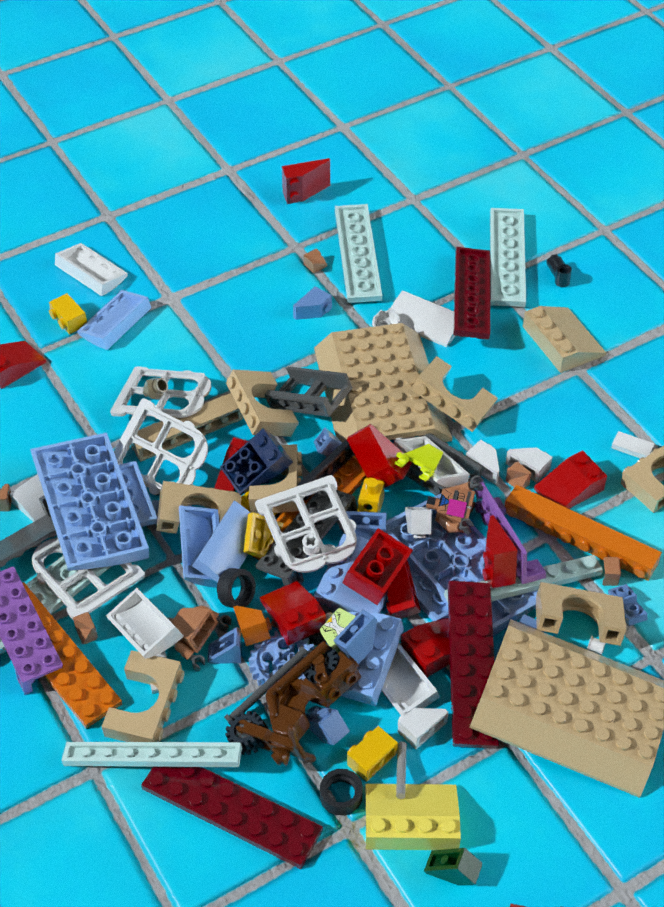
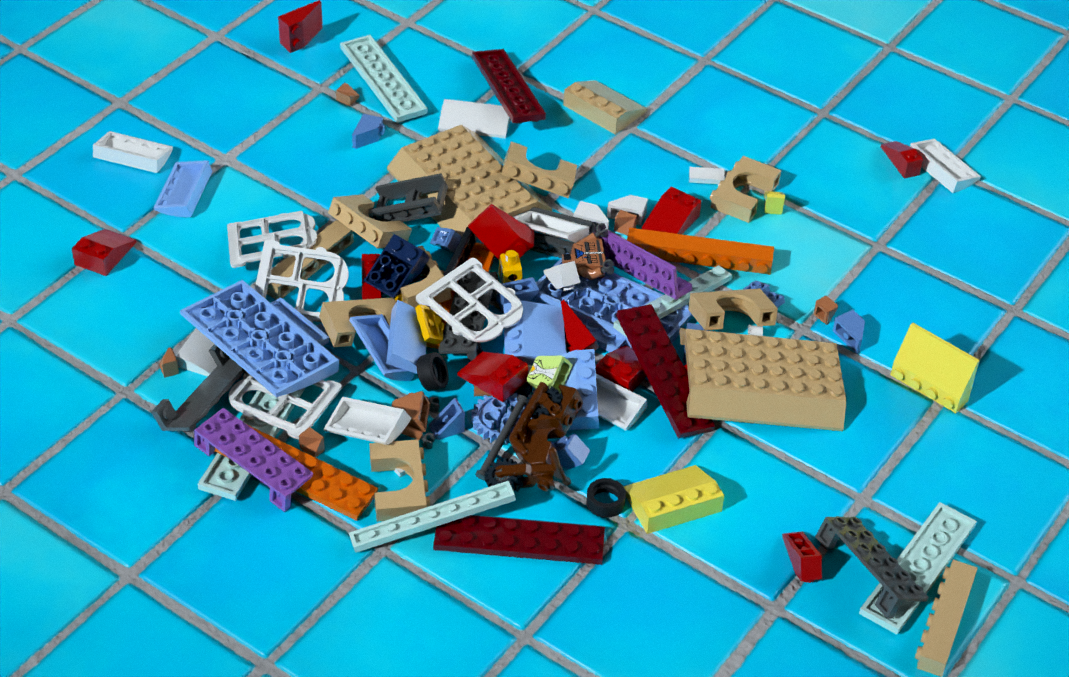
camera: 25 degrees left, 5 degrees down
(67, 313) = (135, 194): yellow brick -> none
(155, 388) = (266, 231): dark tan rock -> none
(252, 625) = (466, 392): orange slope -> none
(310, 539) = (486, 314): white axle -> none
(358, 636) = (568, 368): medium blue slope -> none
(371, 753) = (616, 460): yellow brick -> none
(377, 566) = (551, 317): red slope -> none
(386, 318) = (442, 124): white hair -> none
(401, 770) = (647, 466): light grey bar -> none
(421, 724) = (644, 429): white slope -> none
(426, 457) = (546, 223): neon yellow flag -> none
(454, 866) = (726, 520): slope -> none
(456, 508) = (592, 256): dark pink sticker -> none
(499, 556) = (648, 280): red slope -> none
(507, 257) = (521, 49): light aqua plate -> none
(560, 270) = (575, 51): black piece -> none
(612, 571) = (742, 273): nougat slope -> none

